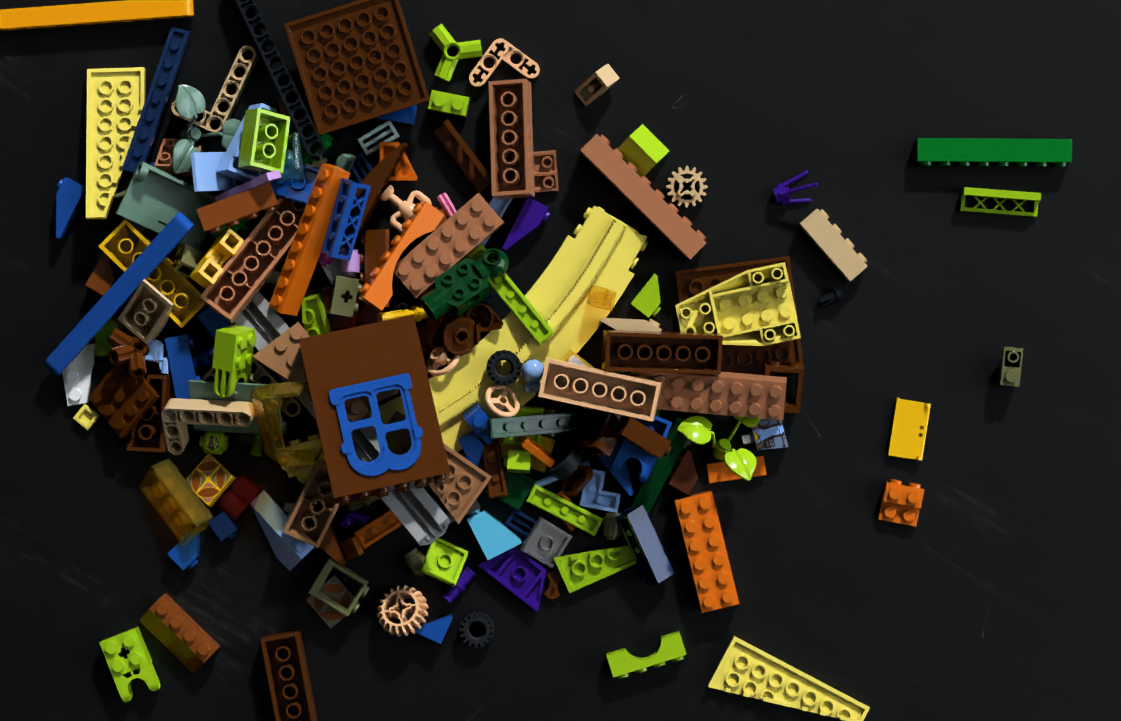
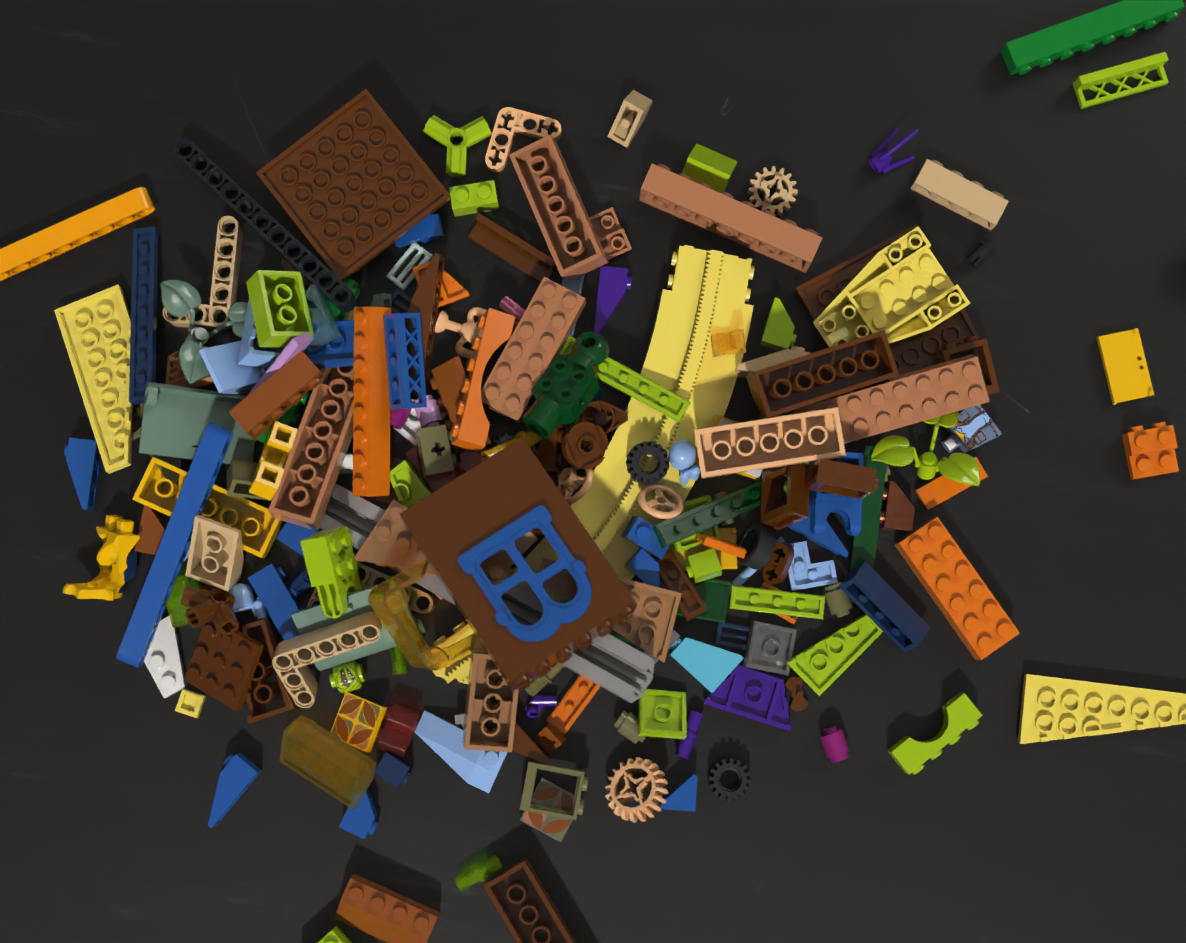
camera: 20 degrees left, 5 degrees down
(71, 277) = (116, 562): none -> yellow hips
(99, 488) = (232, 783): none -> blue slope
(260, 627) = (478, 873): none -> clear neon green pin
(567, 634) = (834, 744): none -> magenta brick

